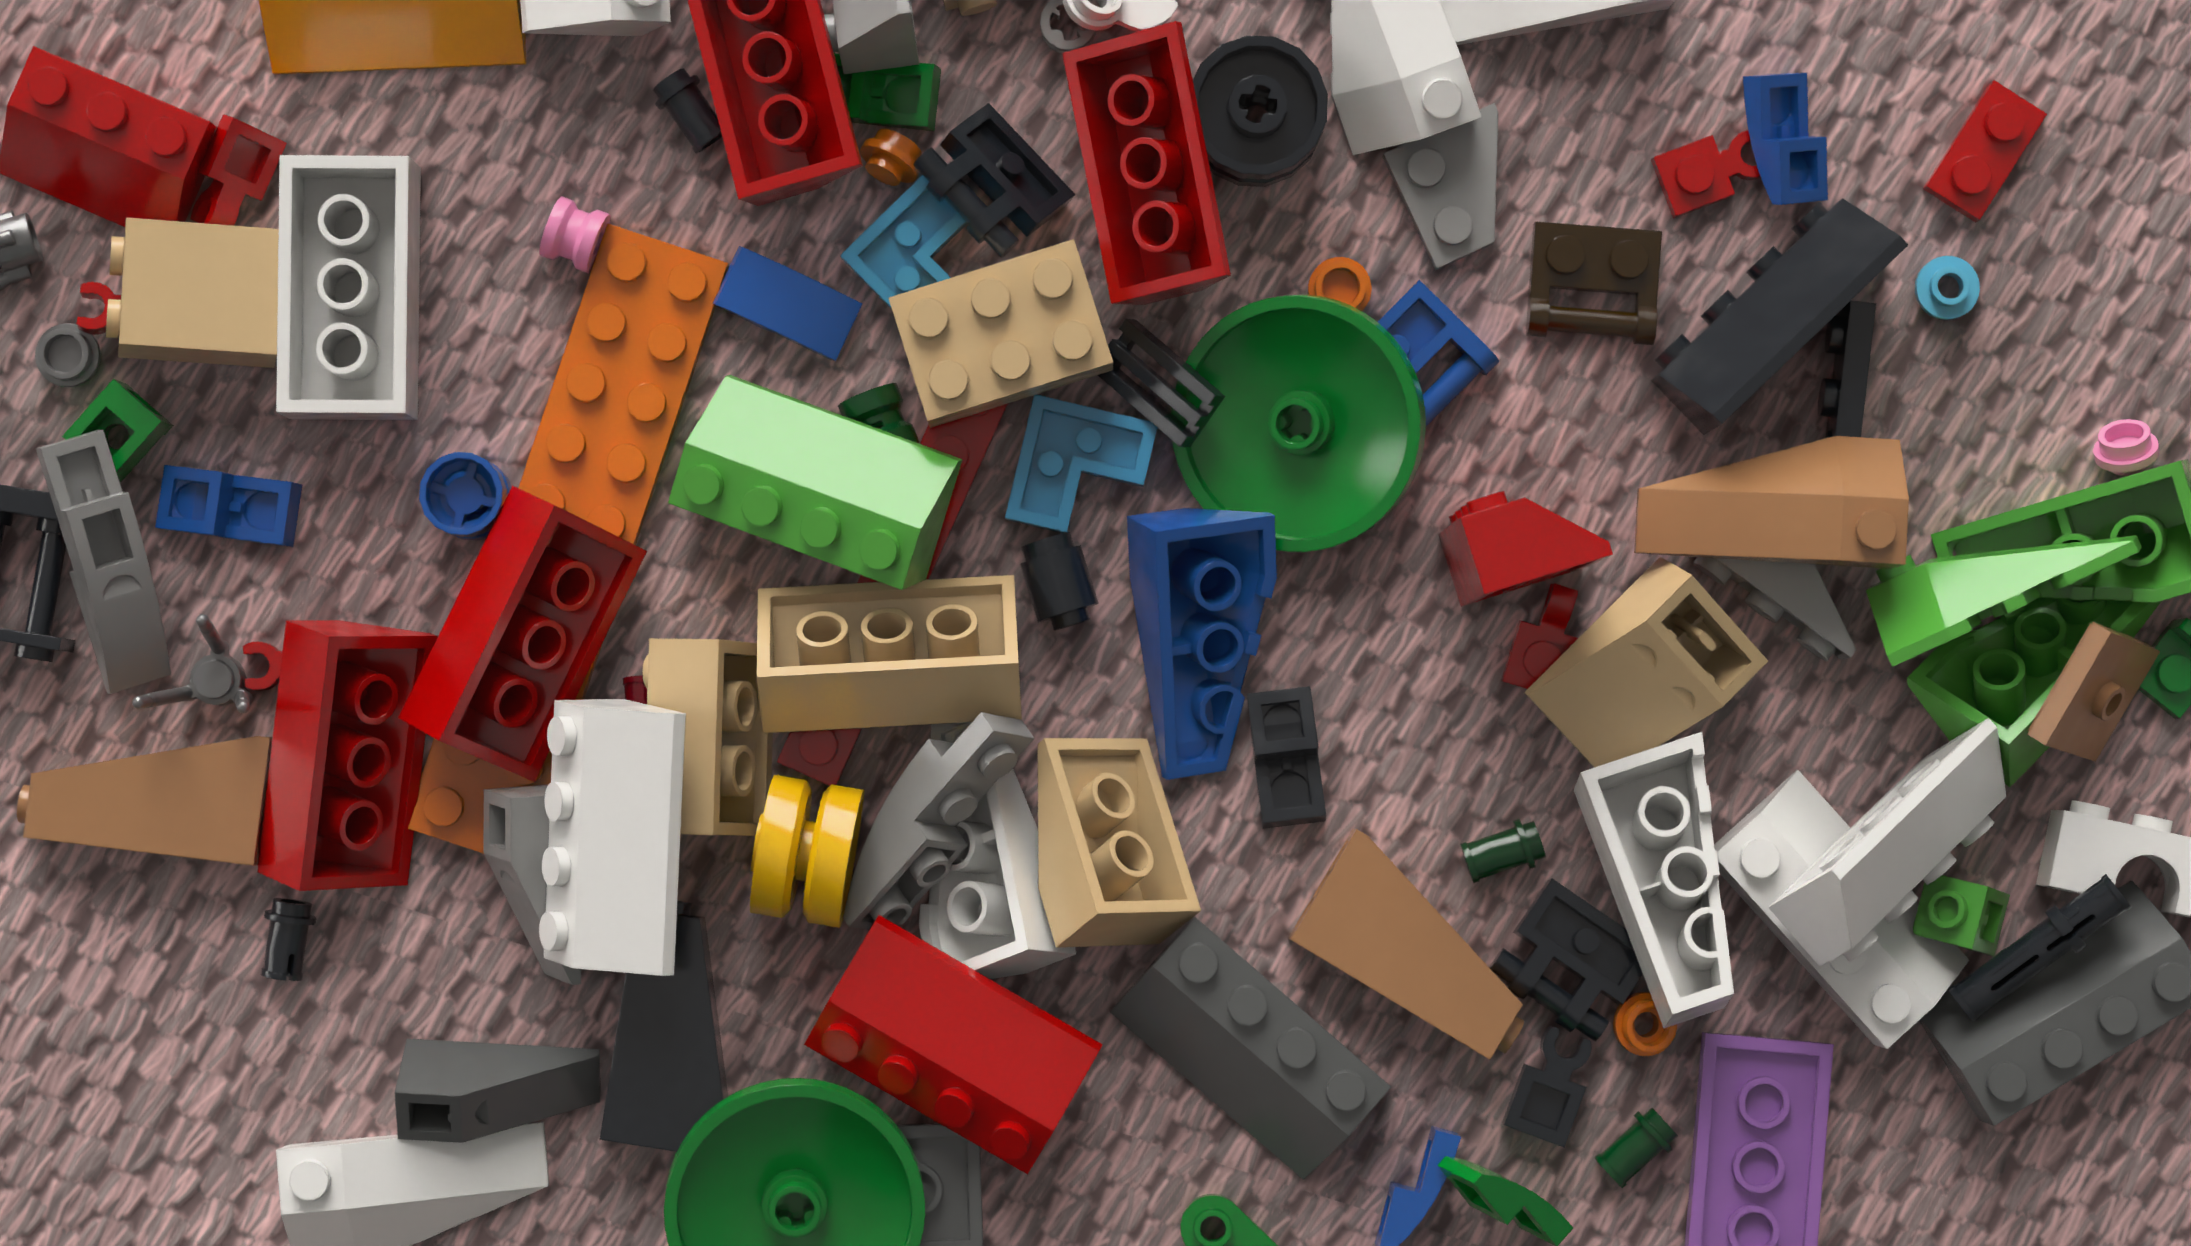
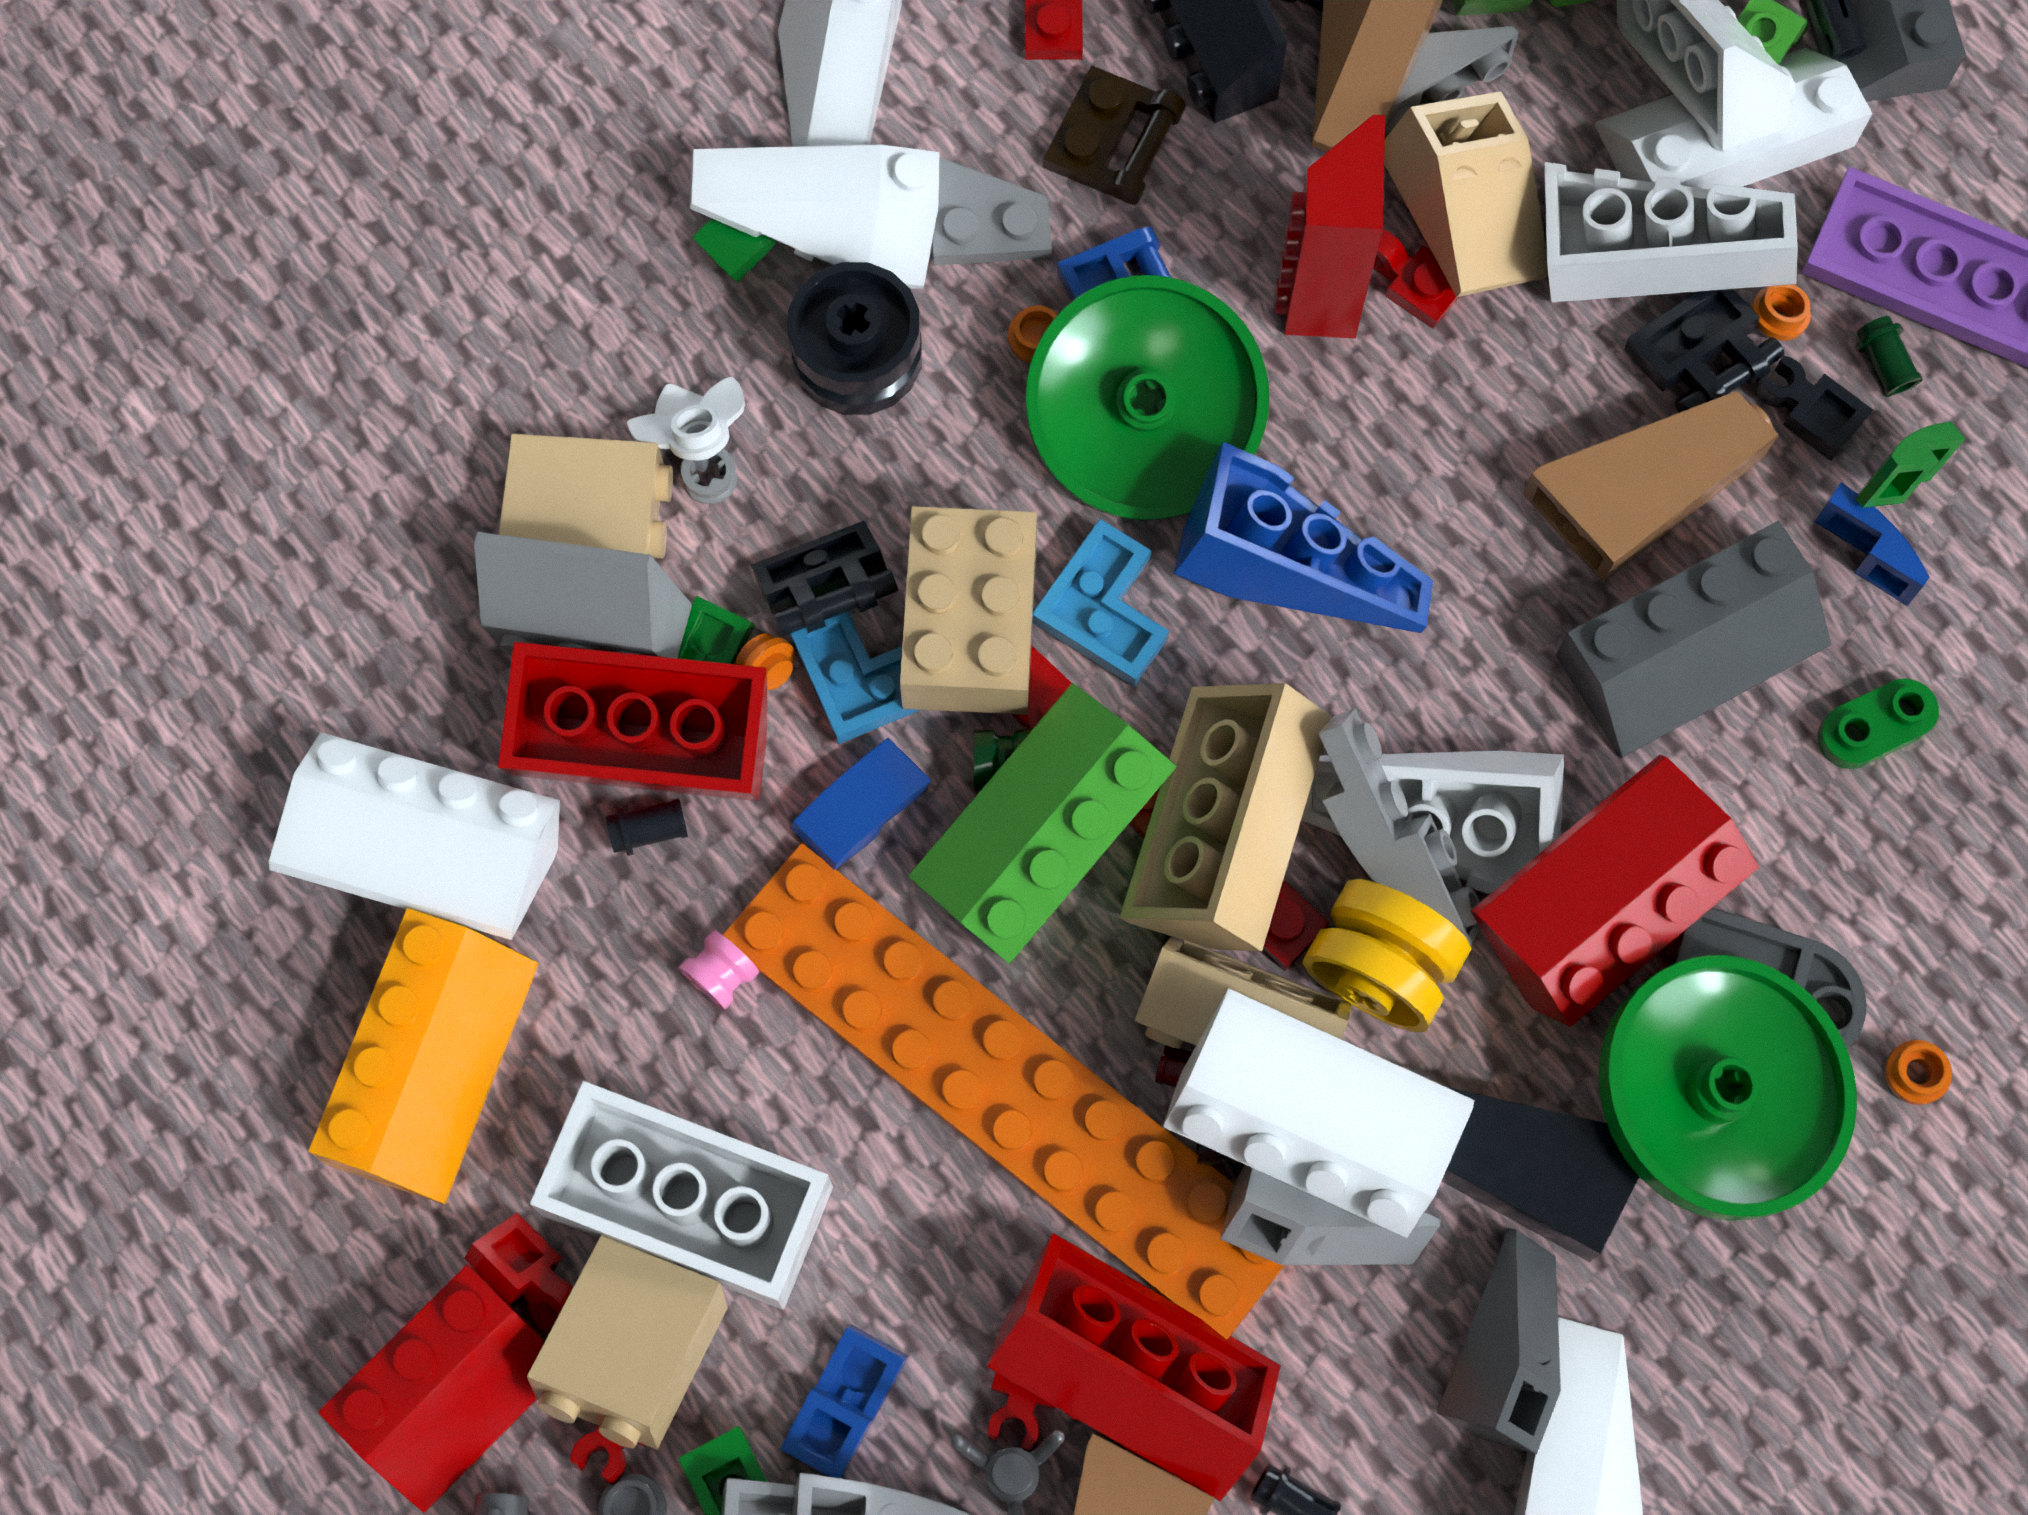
camera: 65 degrees left, 15 degrees down
(463, 494) = (928, 1156): blue wheel -> none
(522, 633) = (1081, 1147): red slope -> none
(1058, 581) = (1210, 655): black brick -> none
(1108, 845) = (1476, 689): tan slope -> none
(1121, 354) = (1108, 477): black tile -> none
(1147, 166) = (868, 428): red slope -> none
(1286, 757) = (1448, 527): black slope -> none
(1503, 851) = (1587, 361): dark green pin -> none

